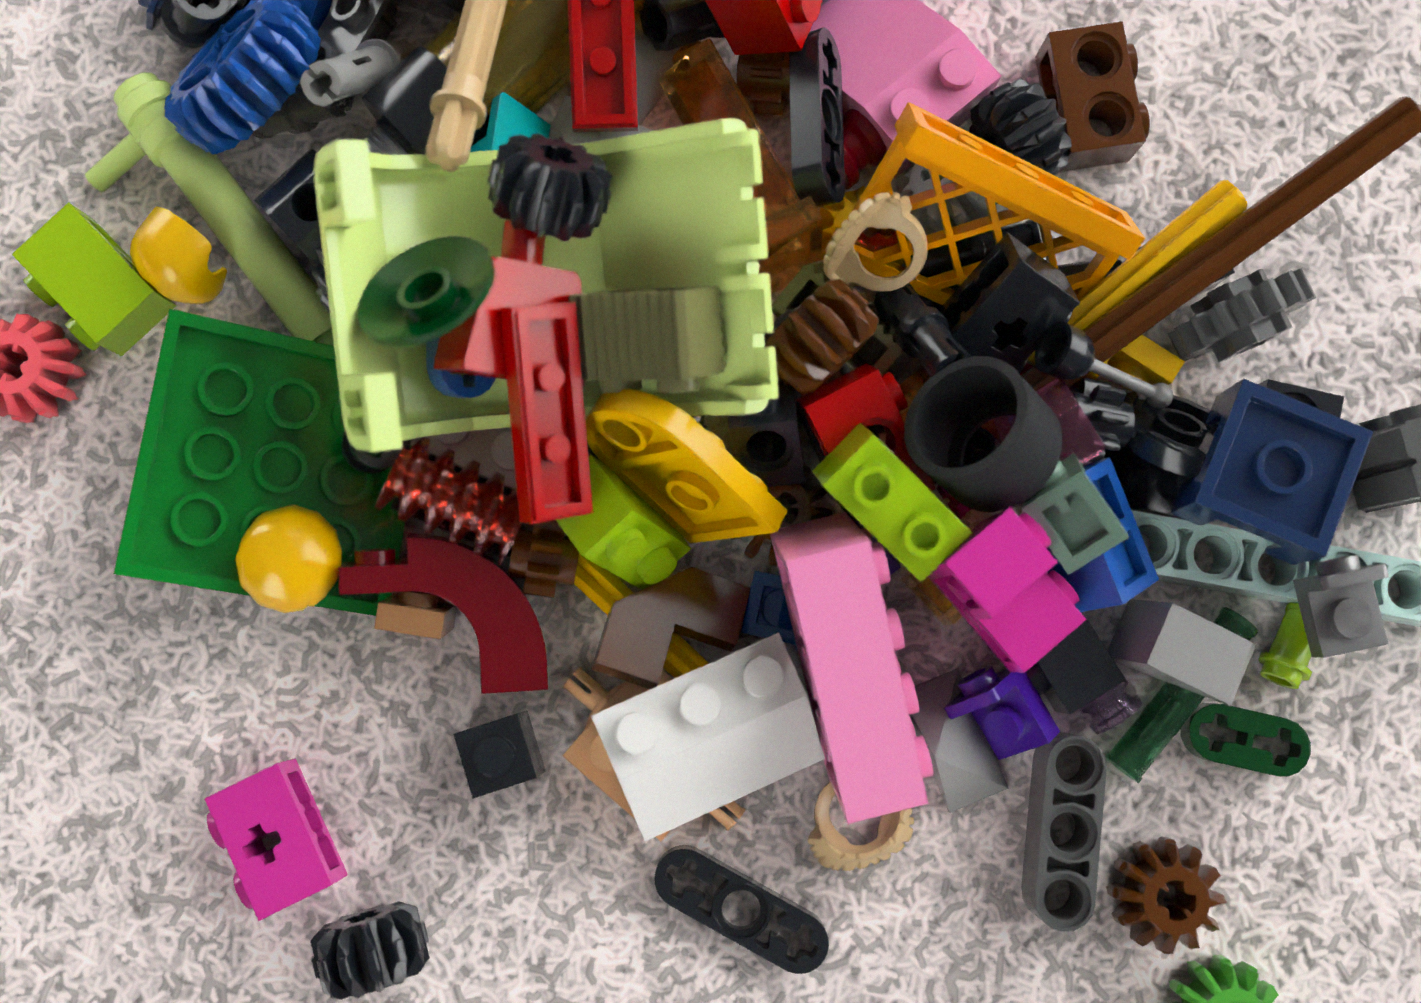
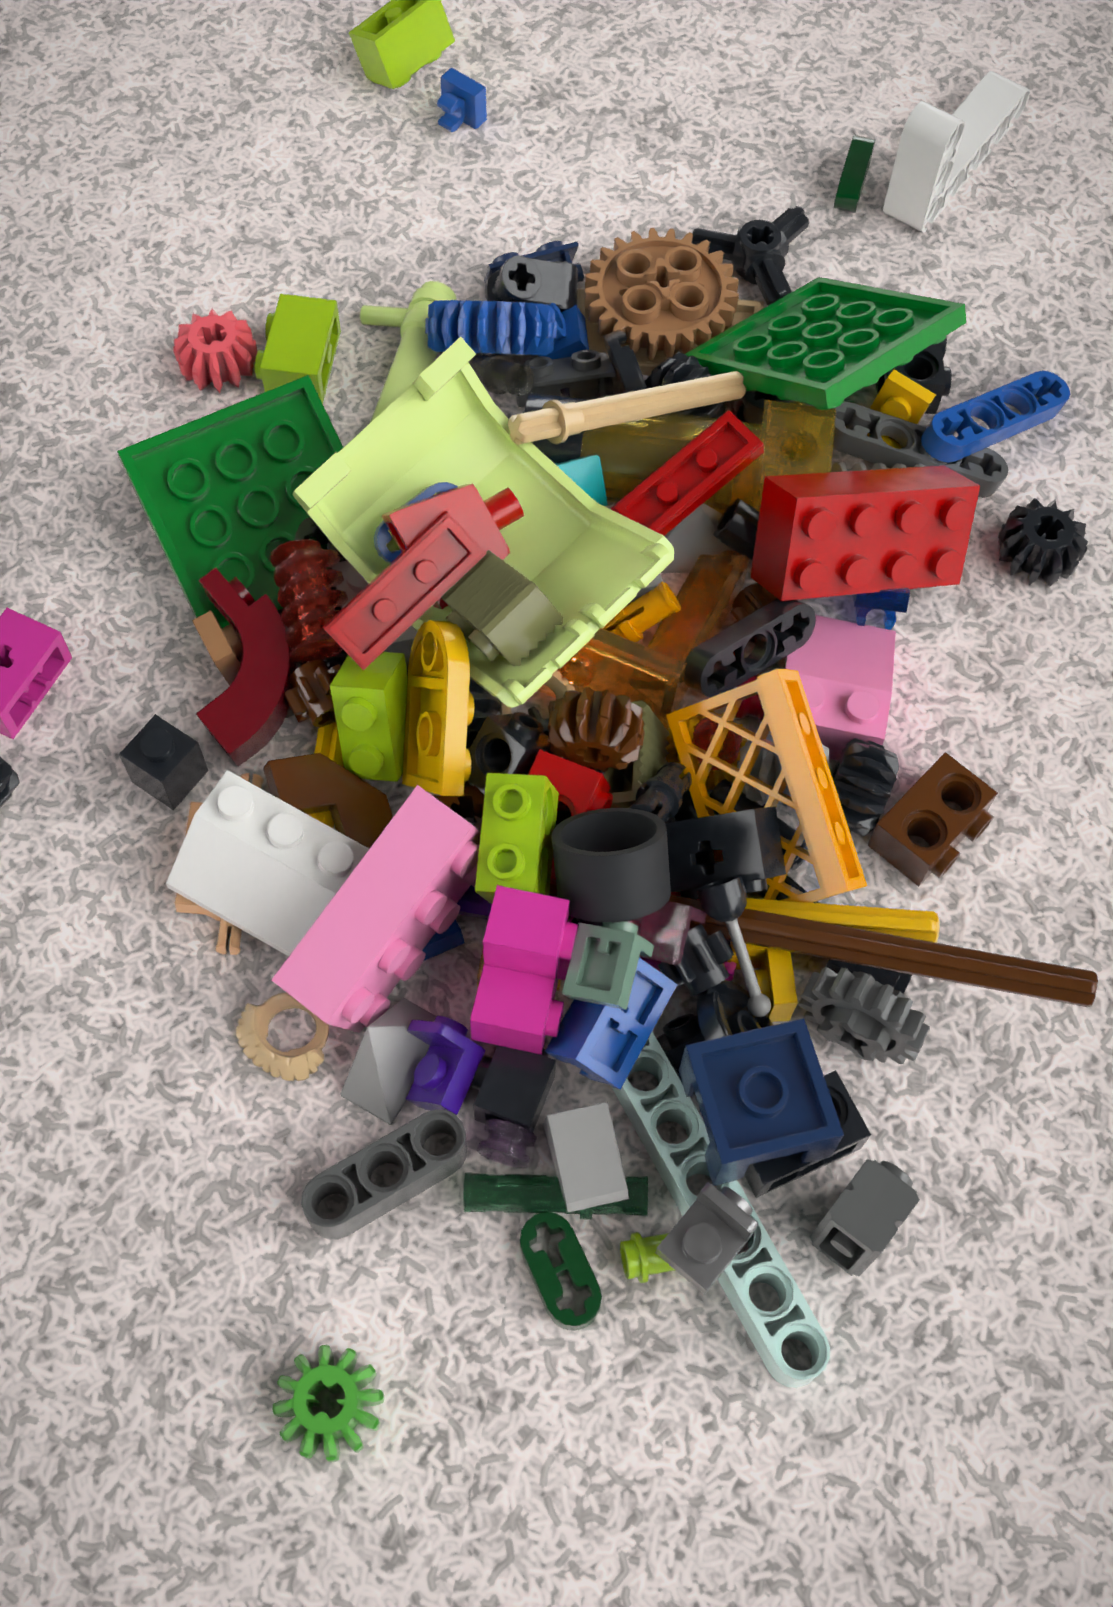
camera: 50 degrees right, 20 degrees down
(175, 259) = (343, 372): yellow hair -> none
(289, 559) = (199, 541): yellow hair -> none
(352, 71) = (536, 370): light grey axle -> none
(426, 291) = (420, 467): dark green dish -> none
(549, 186) = (546, 491): black gear -> none
(790, 918) = (183, 1034): black beam -> none
(881, 212) = (663, 714): tan piece -> none
(1181, 915) = (369, 1287): reddish brown gear -> none

